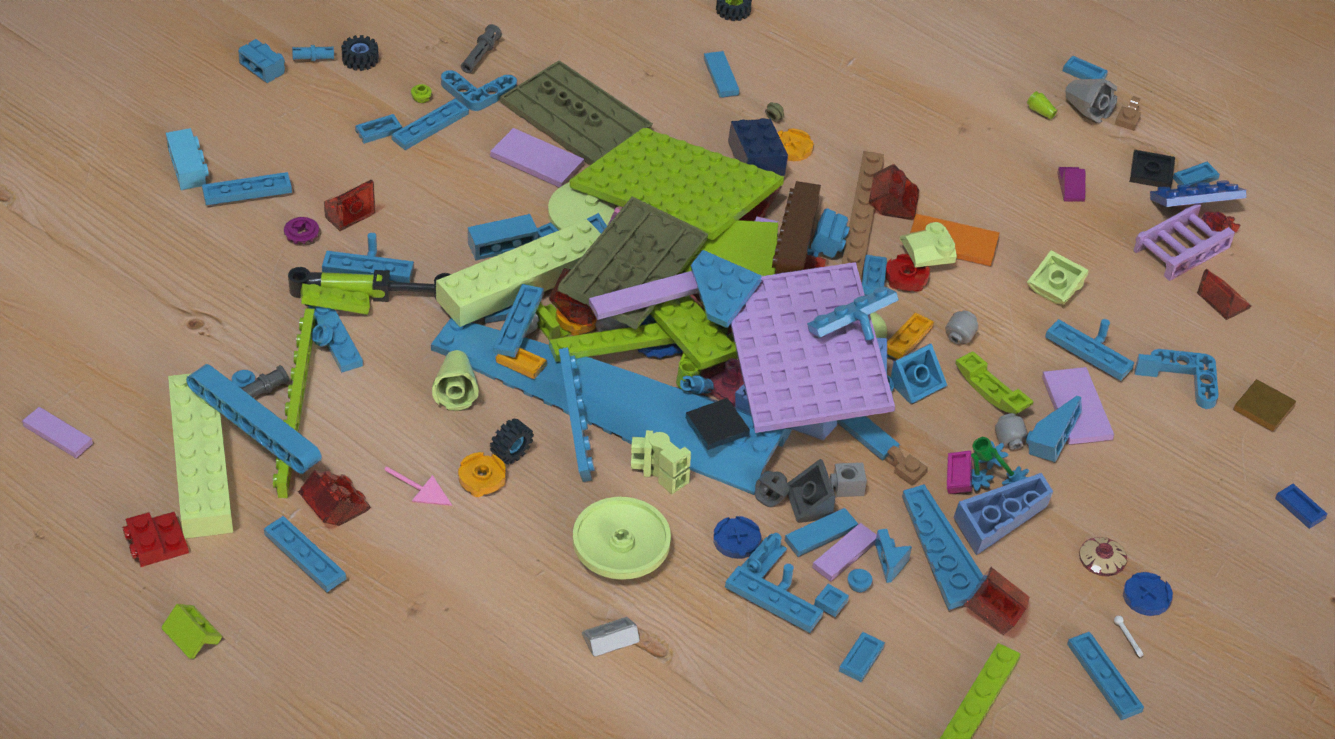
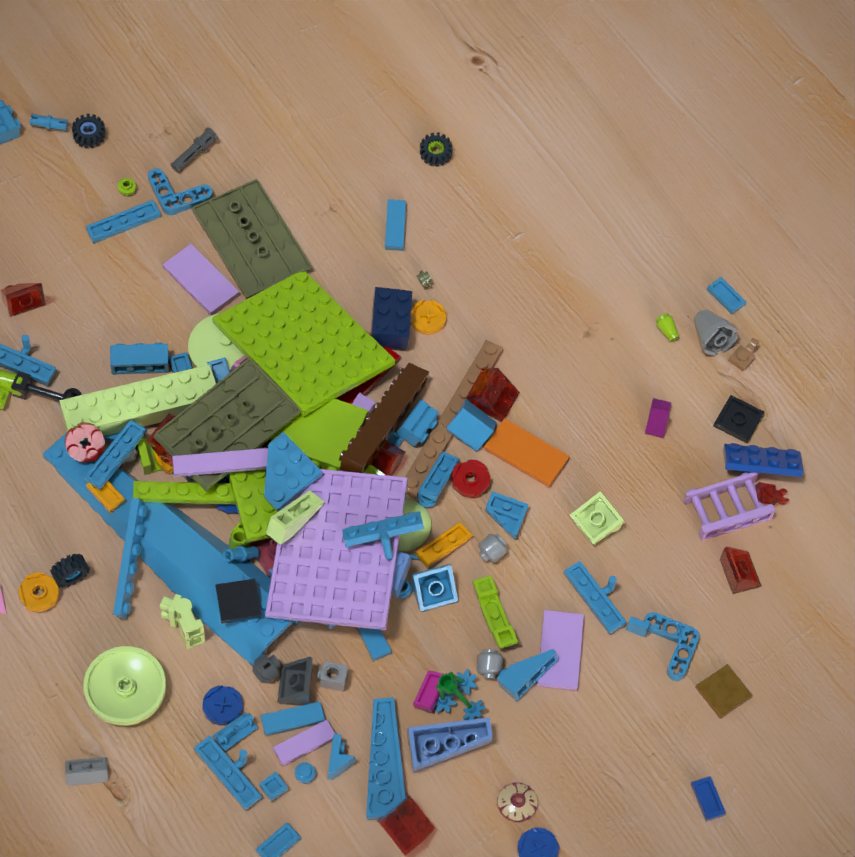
camera: 15 degrees right, 15 degrees up
(378, 128) = (77, 219): dark azure tile -> none
(455, 382) = (47, 497): yellowish green cone -> none
(492, 314) = (90, 451): none -> plate
(748, 324) = (292, 517): none -> yellowish green slope
(885, 225) = (471, 425): none -> dark azure slope
(906, 468) = (389, 675): medium nougat plate -> none
(930, 246) = (498, 458): yellowish green slope -> none
(959, 294) = (507, 512): none -> dark azure wing
(1197, 174) = (775, 436): dark azure tile -> none

